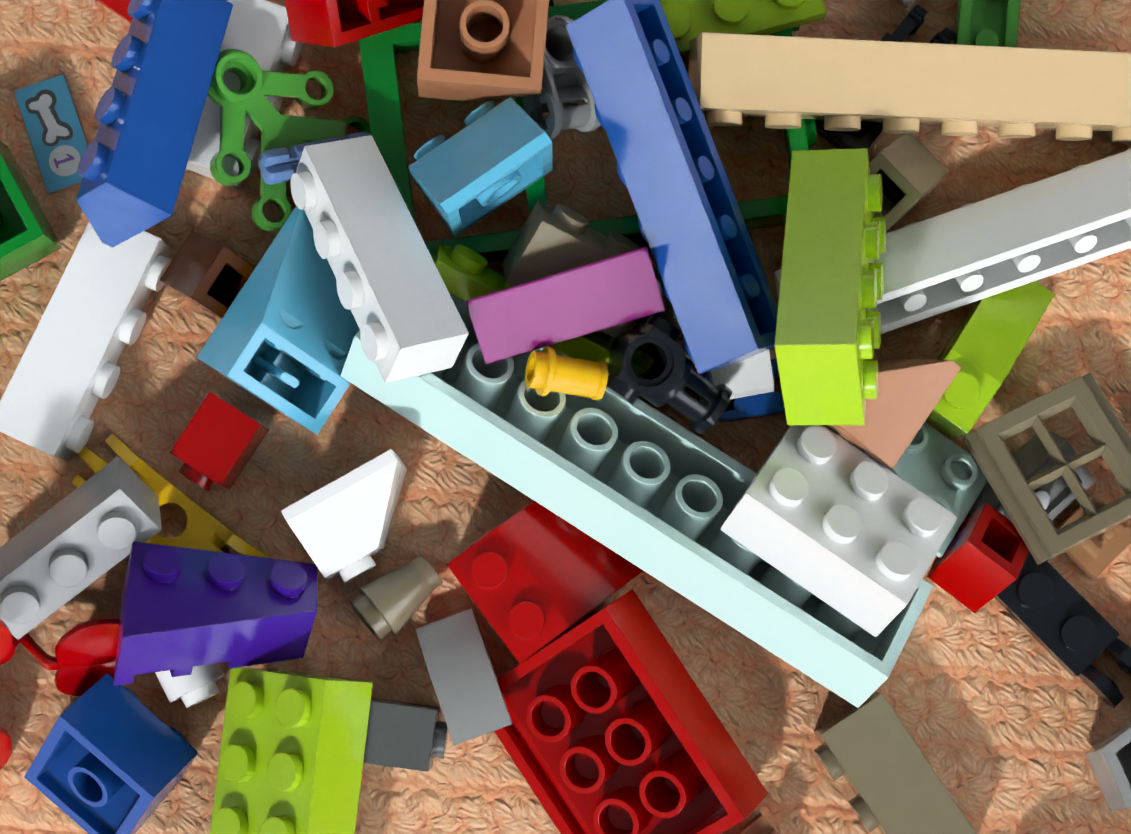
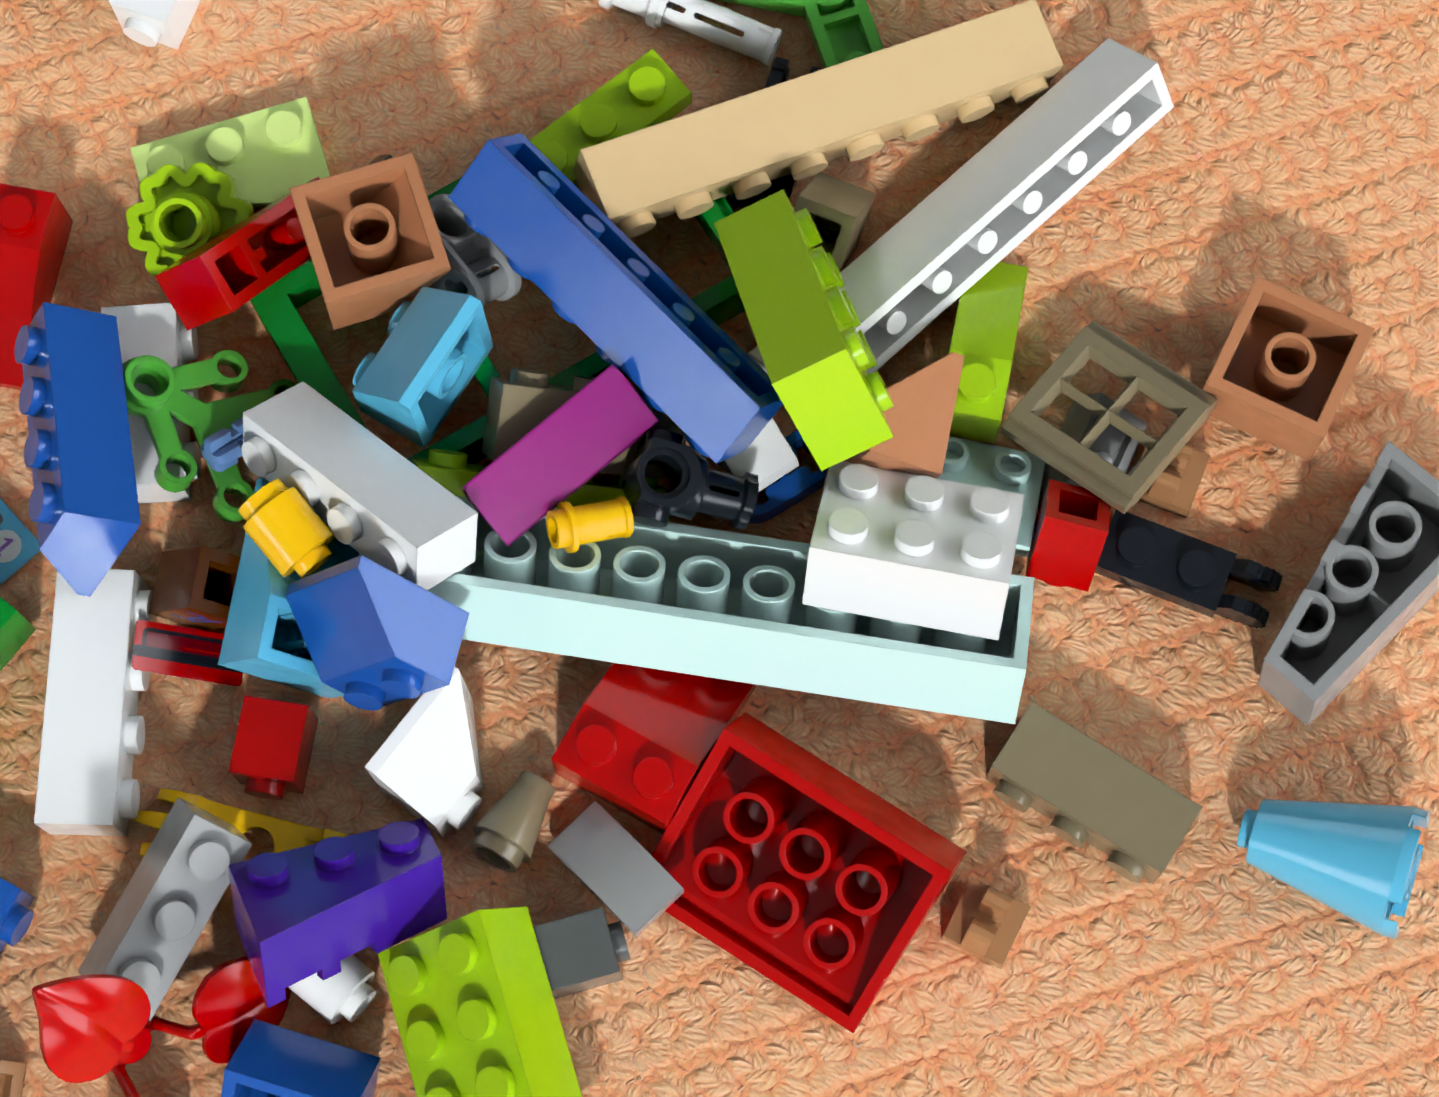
camera: 20 degrees left, 10 degrees down
(171, 323) = (181, 653): none -> sticker
(299, 271) = (287, 529): none -> yellow brick
(339, 400) = (376, 632): none -> blue slope

